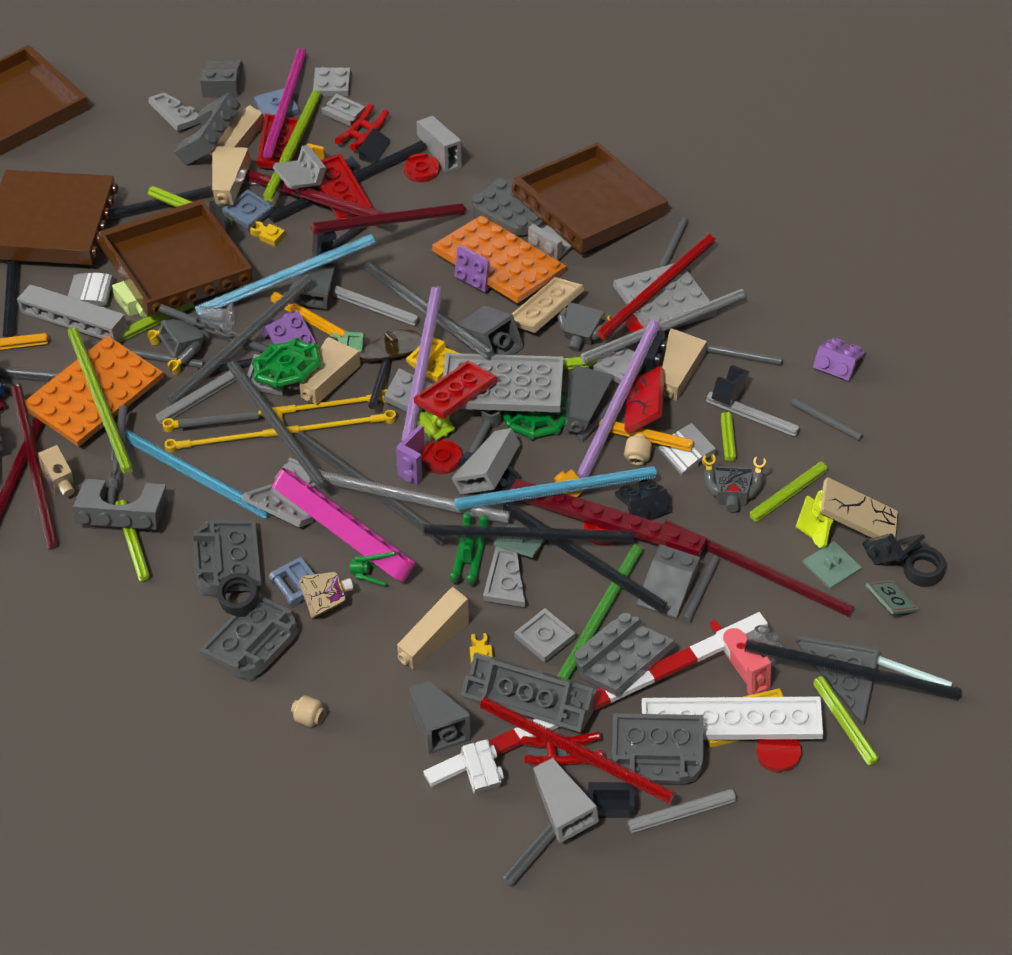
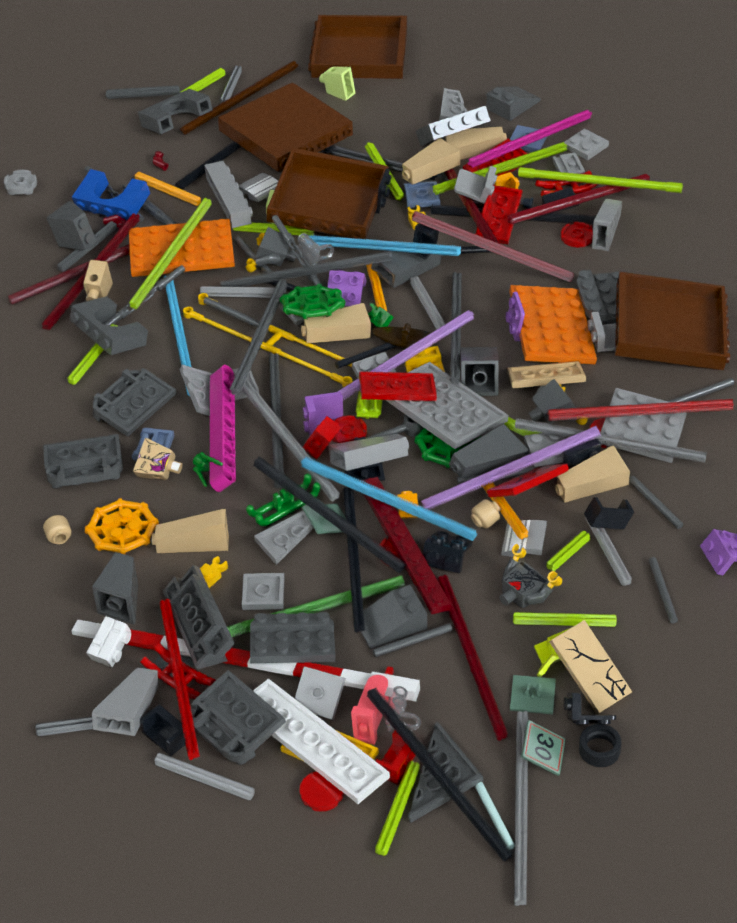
camera: 45 degrees right, 5 degrees down
(41, 145) = (338, 82): none -> yellowish green torso
(233, 580) = (105, 433): black tyre -> none
(323, 134) = (624, 182): none -> lime piece
(358, 658) = (127, 538): none -> light orange plate
(390, 135) = (569, 201): none -> dark red axle
(445, 476) = (321, 437): none -> red panel
(692, 677) = (320, 692): none -> light grey plate
(801, 680) = (397, 758): none -> red panel
(924, 653) = (521, 814): none -> light grey axle

